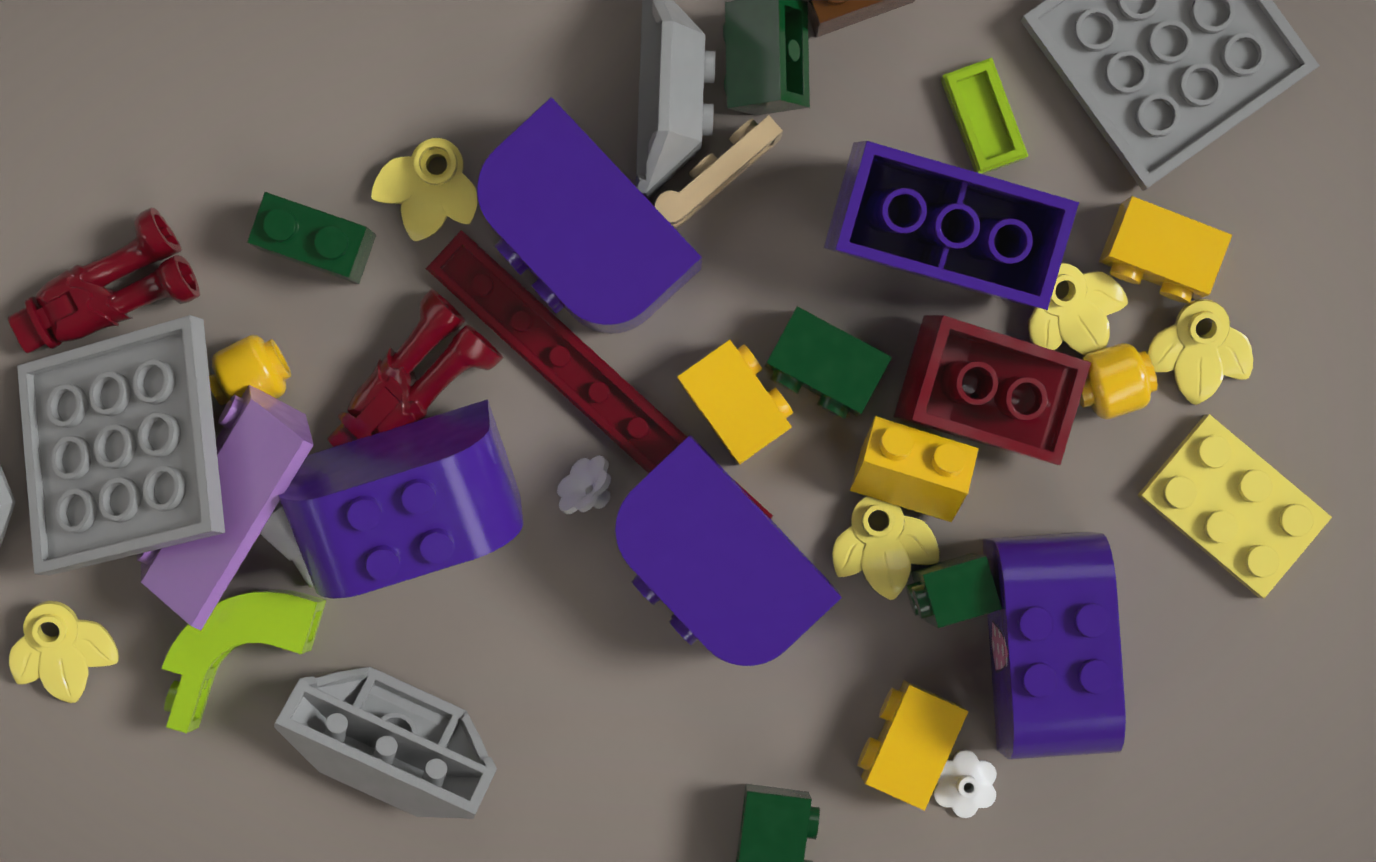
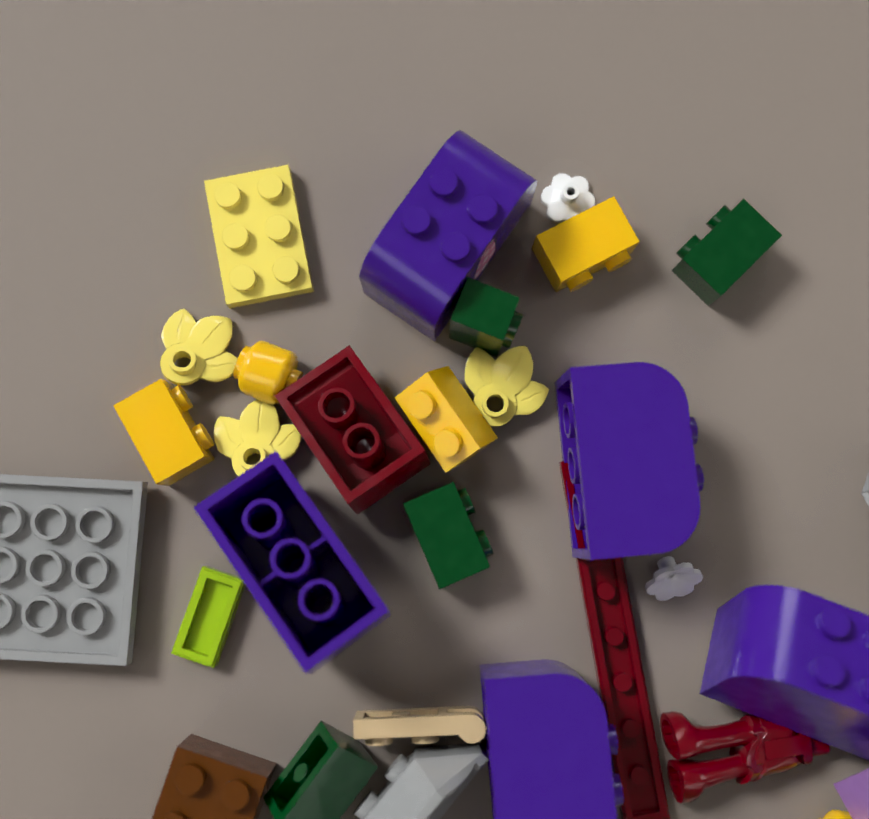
camera: 140 degrees left, 5 degrees down
(736, 401) = (528, 558): yellow brick -> none

